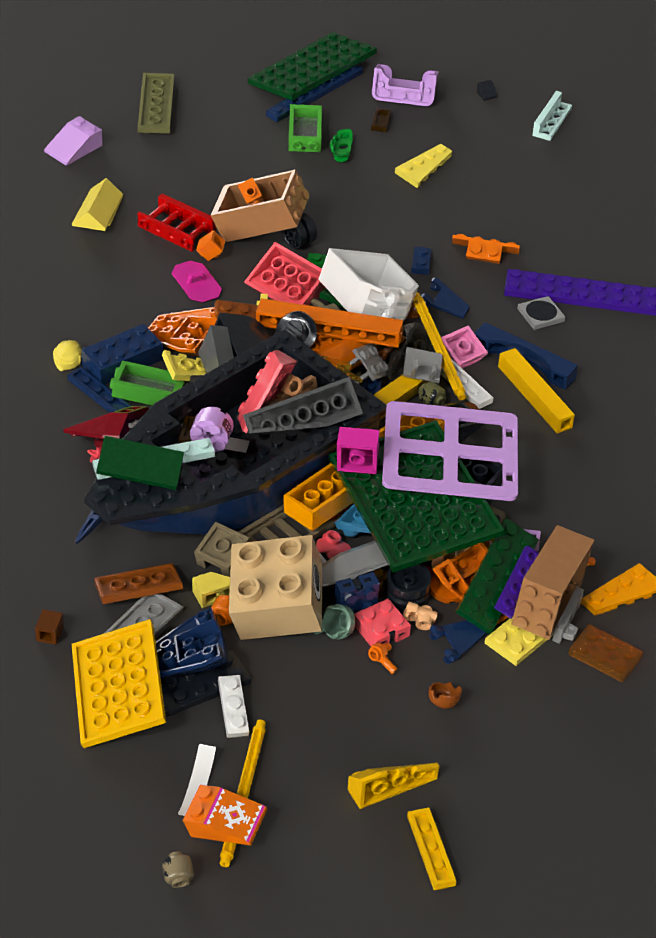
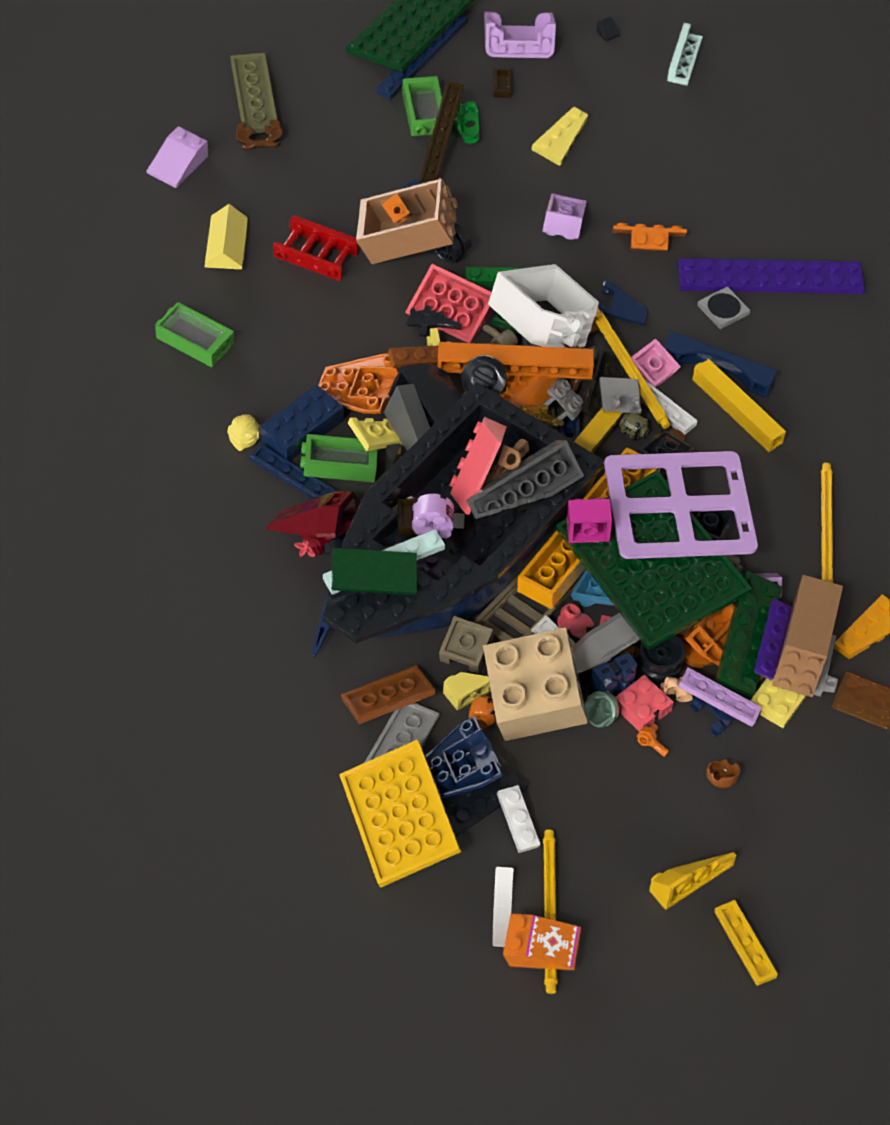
camera: 10 degrees left, 10 degrees up
(46, 275) = (194, 334): none -> window
(49, 627) = (311, 758): reddish brown brick -> none
(137, 131) = (243, 135): none -> reddish brown helmet
(178, 869) = (508, 1005): dark tan head -> none
(196, 281) = (354, 318): dark pink shield -> none
(210, 245) = (361, 274): orange brick -> none
(264, 287) = (429, 319): none -> black piece
(316, 142) = (441, 132): none -> dark brown tile
(409, 225) = (564, 216): none -> lavender slope
(421, 260) = (585, 259): dark blue plate -> none
(457, 626) = (719, 697): none -> lavender plate
(599, 493) = (827, 522): none -> yellow piece

